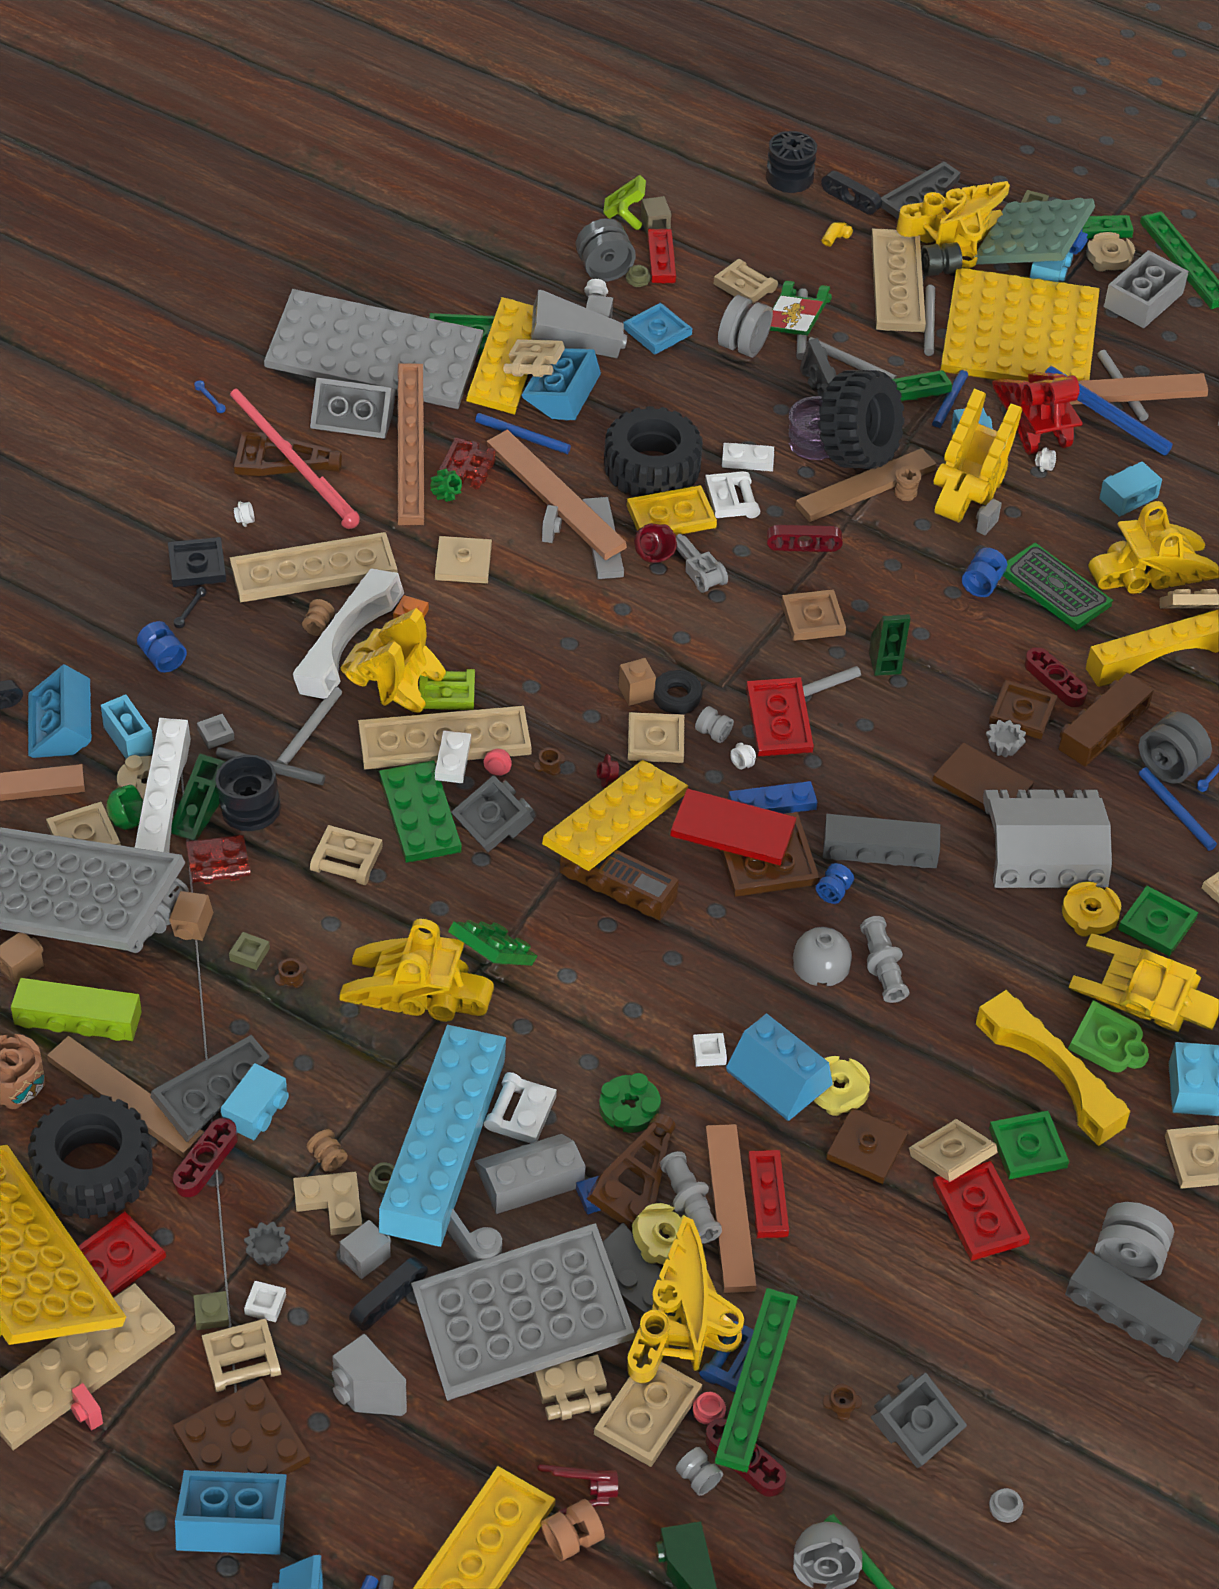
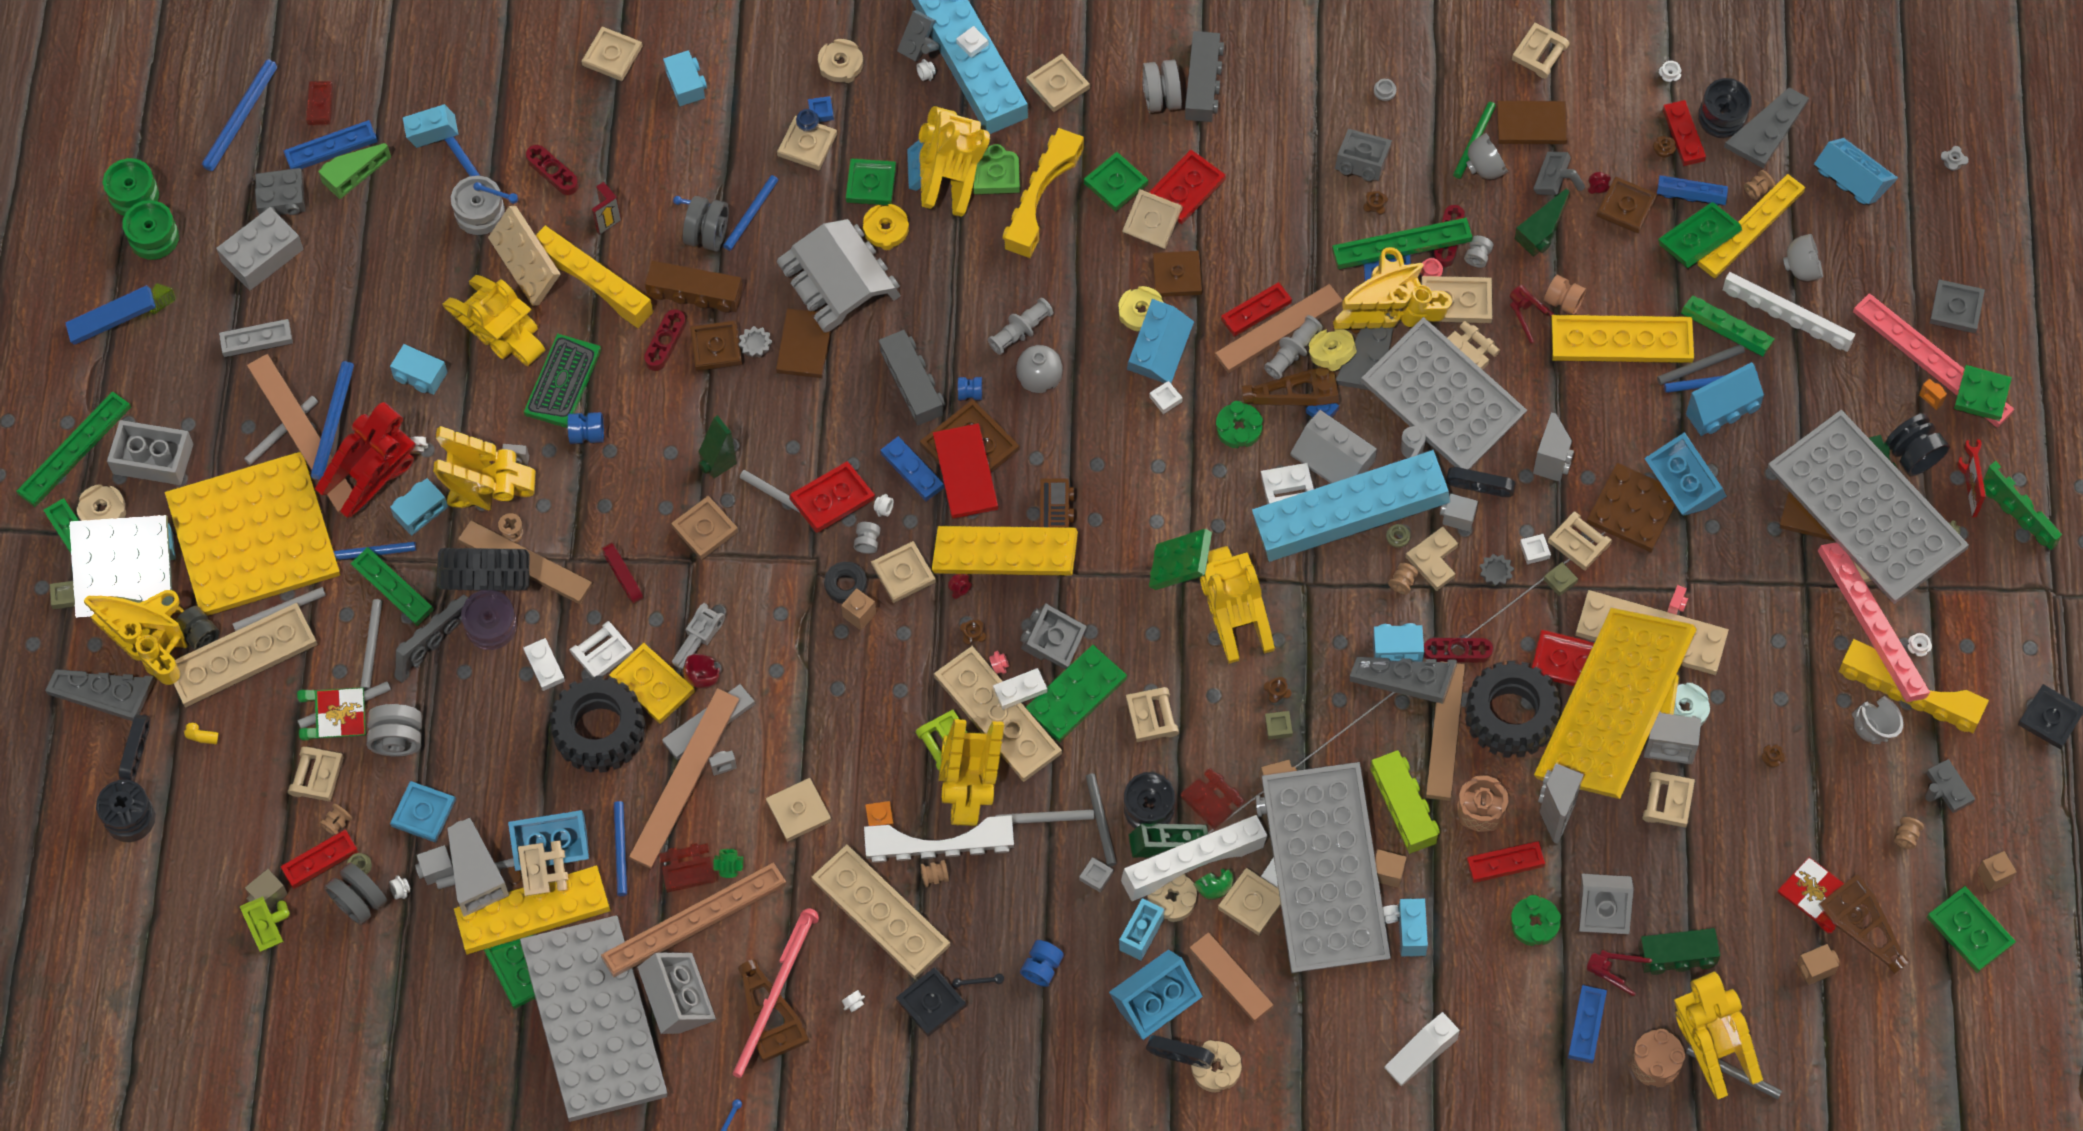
camera: 115 degrees left, 15 degrees up
(694, 274) = (328, 824): none -> medium nougat bush

